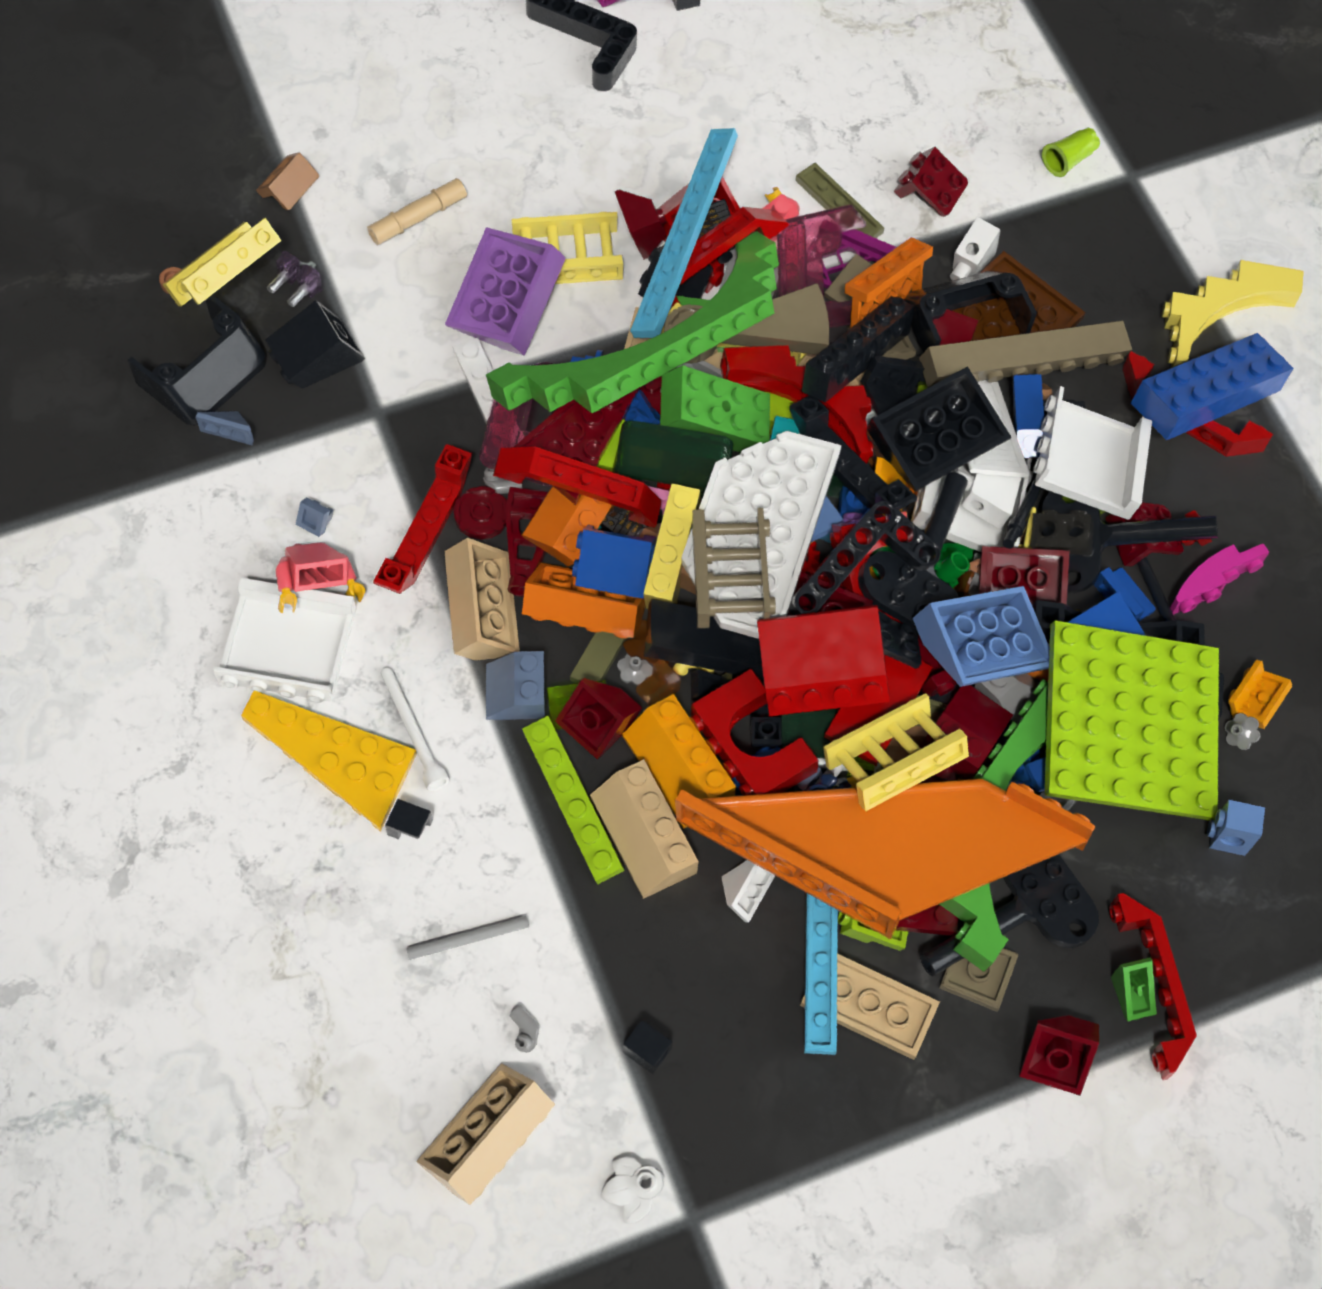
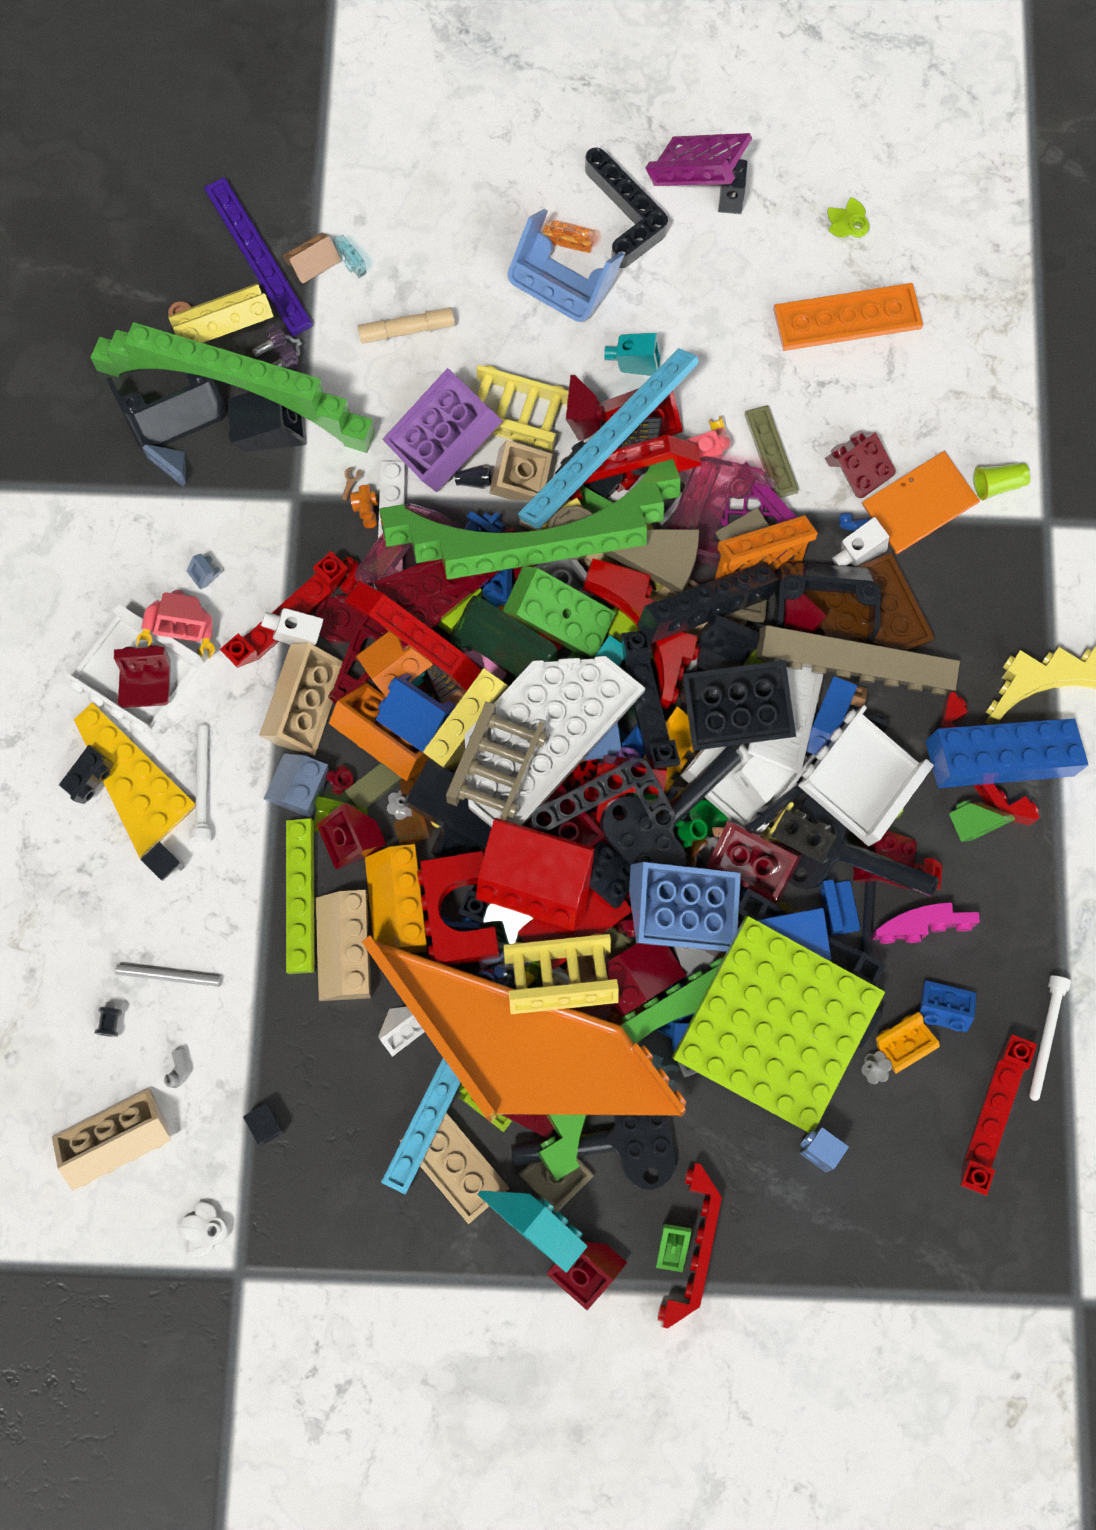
camera: 25 degrees right, 10 degrees up
(227, 197) = (258, 257): none -> dark purple tile
(283, 764) = (86, 775): none -> black bracket
(301, 639) = (143, 676): none -> dark red bracket
(332, 167) = (353, 260): none -> clear light blue plate
(339, 295) = (299, 392): none -> bright green arch
(425, 1011) = (108, 1022): none -> black bush
(430, 378) = (350, 481): none -> medium nougat hand
(443, 529) = (304, 626): none -> white torso
(457, 389) = (364, 503): none -> orange plate
(476, 468) = (349, 583): none -> red arm
(544, 76) = (569, 235): none -> clear orange bracket
(547, 124) = (551, 281): none -> medium blue windscreen
(557, 327) = (474, 477): none -> black cone
(560, 666) = (346, 779): none -> dark red plate
(602, 304) = (519, 471): none -> tan slope
(665, 157) = (636, 353): none -> teal torso
(850, 59) = (847, 316): none -> orange plate
(947, 241) = (847, 523): none -> blue arm
(994, 1015) = (538, 1225): none -> teal slope
(1010, 197) = (922, 506): none -> orange container
(1216, 459) = (977, 819): none -> bright green slope
(1279, 646) = (947, 1006): none -> blue bracket

